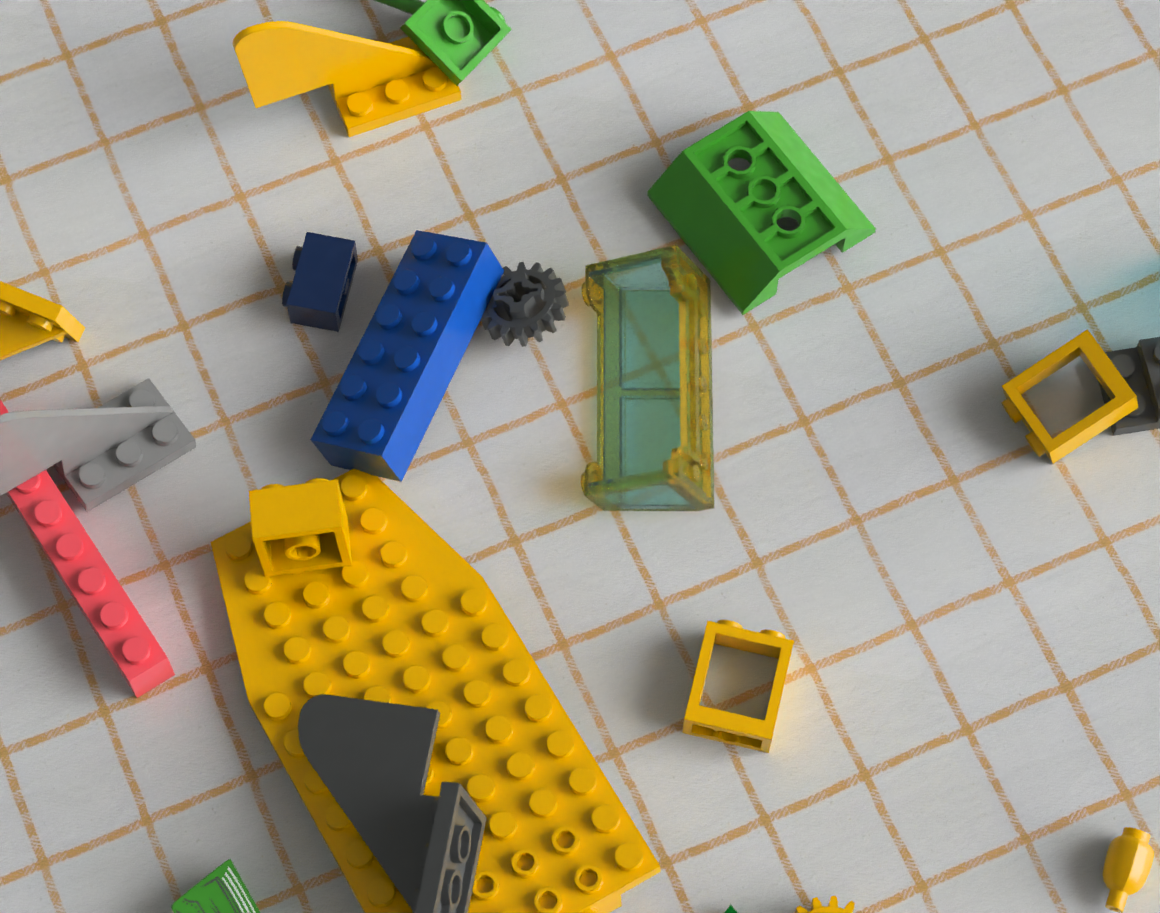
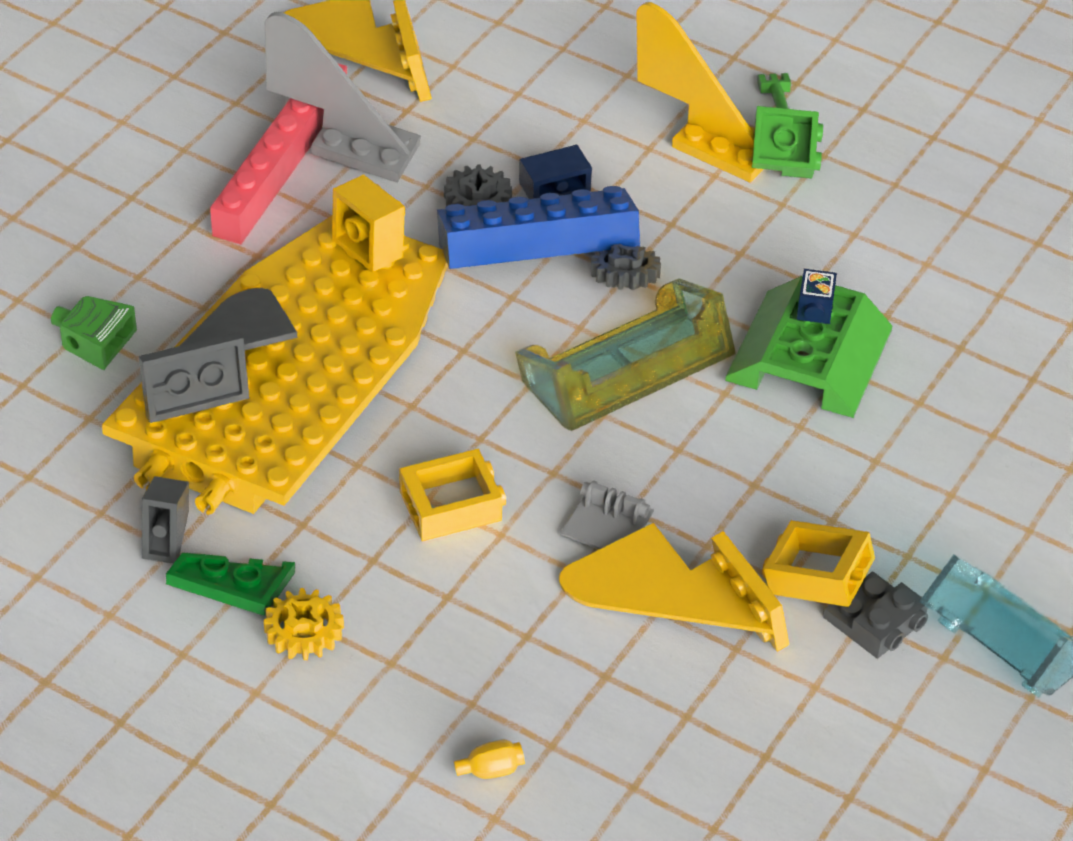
camera: 55 degrees right, 20 degrees down
(288, 361) = (476, 186): none -> dark grey gear
(740, 160) = (816, 296): none -> dark blue brick
(868, 554) = (605, 517): none -> light grey hinge
(980, 568) = (650, 579): none -> yellow piece

